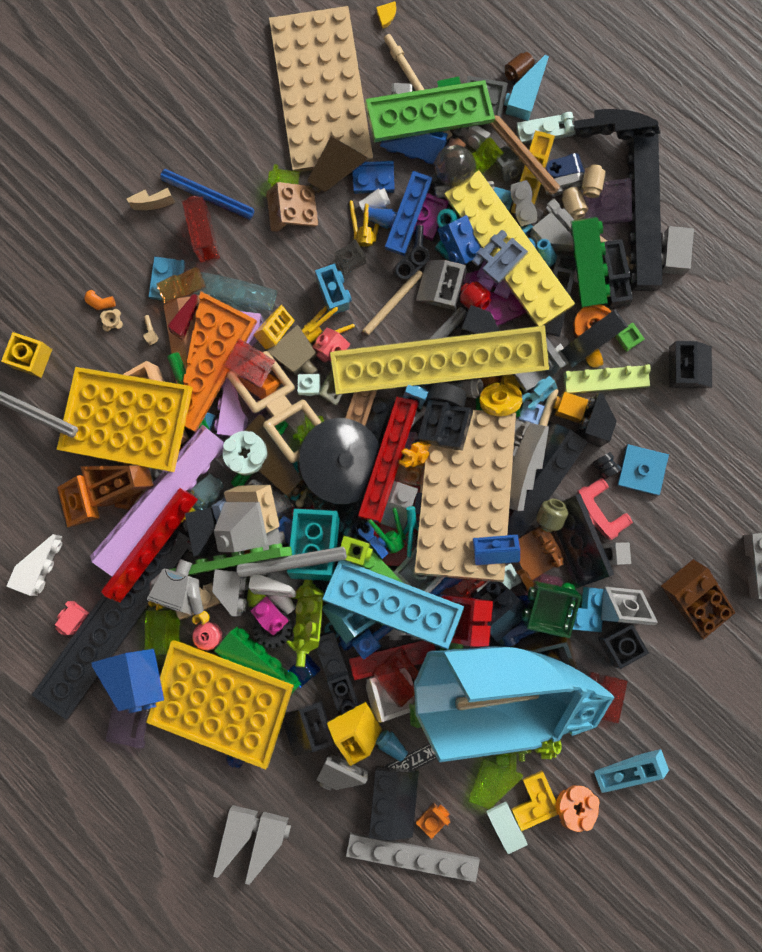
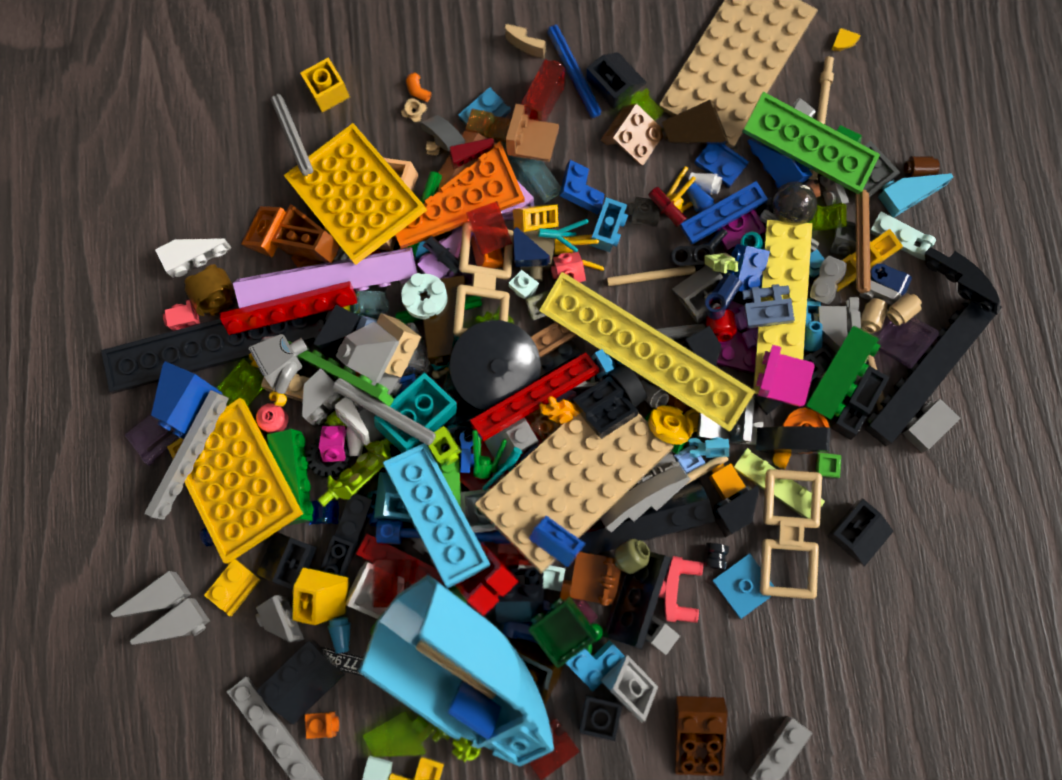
camera: 45 degrees right, 5 degrees down
(77, 581) = (210, 290): none -> pearl gold brick
(150, 318) = (444, 133): none -> dark grey slope
(168, 714) = (186, 456): none -> light grey plate
(220, 269) = (530, 137): none -> medium nougat bracket
(231, 411) = (442, 254): none -> black axle
(243, 176) = (614, 78): none -> black slope
(284, 780) = (232, 587): none -> yellow plate
(286, 282) = (576, 190): none -> blue plate
(291, 357) = (528, 252): none -> dark blue slope
(306, 320) = (559, 234): none -> teal plant
(364, 241) = (667, 206): none -> dark red axle
(439, 251) = (721, 262): none -> yellowish green plate
(461, 274) = (722, 295): none -> dark blue piece
(536, 716) = (475, 710): none -> blue slope
(555, 299) = (784, 377): none -> dark pink bracket
(645, 406) = (791, 534): none -> tan bar

